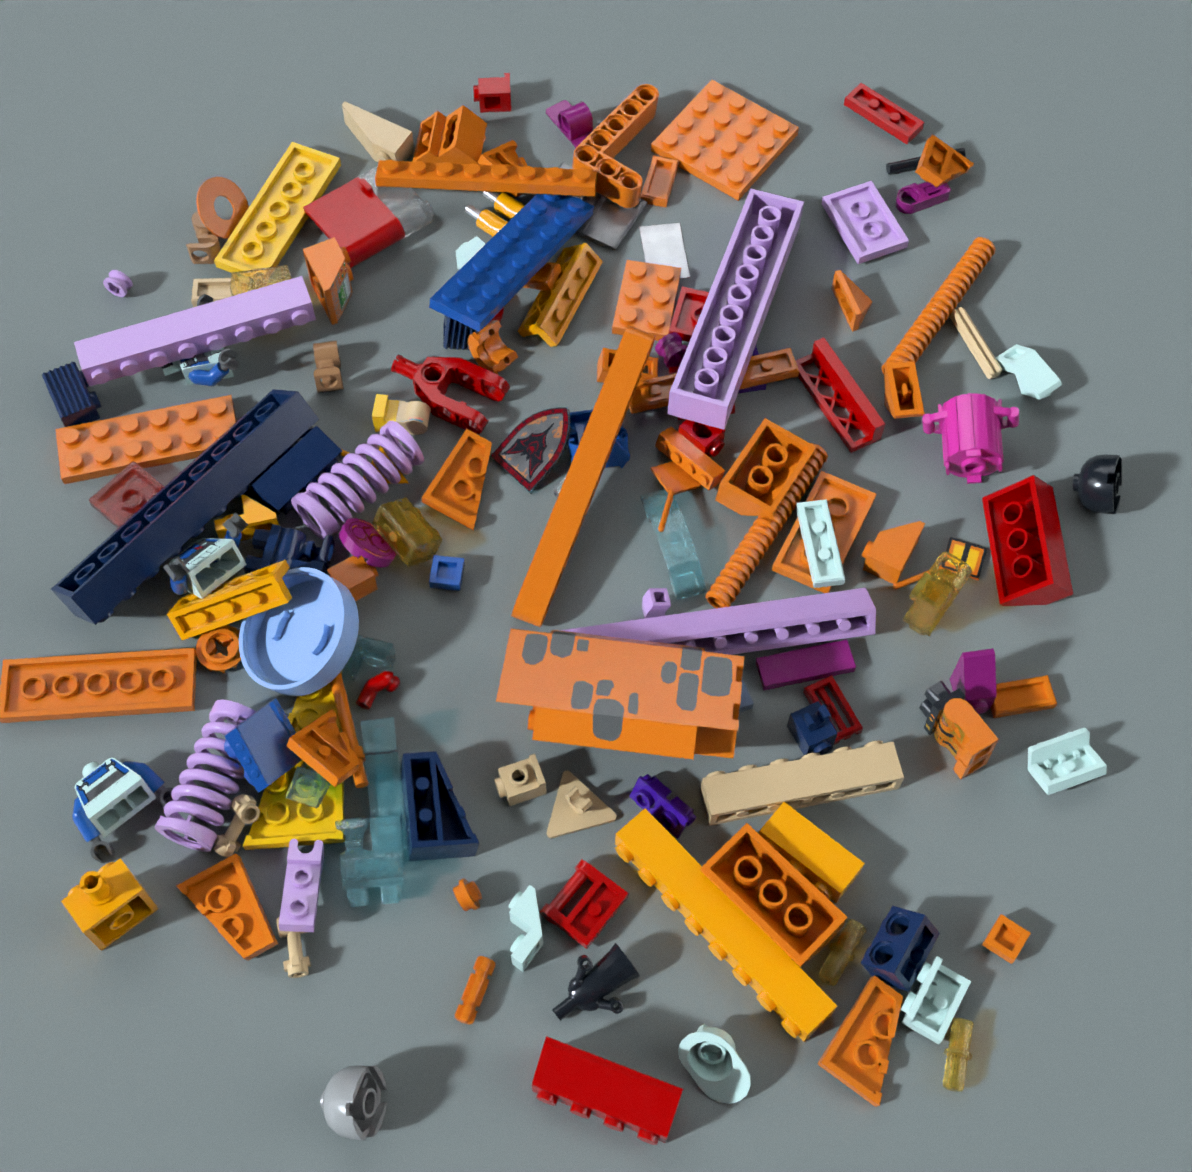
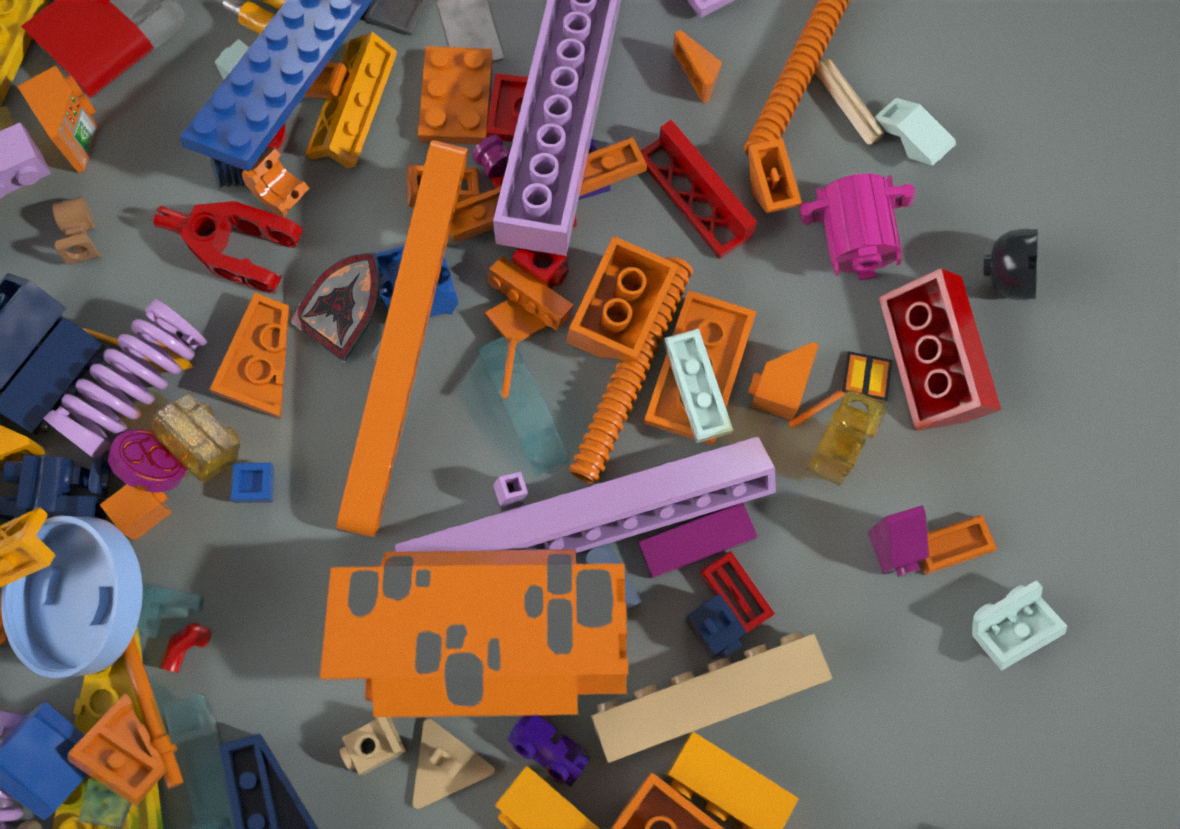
camera: 10 degrees left, 10 degrees up
(410, 415) = (172, 284): leg -> none
(958, 728) = (889, 603): orange hips -> none

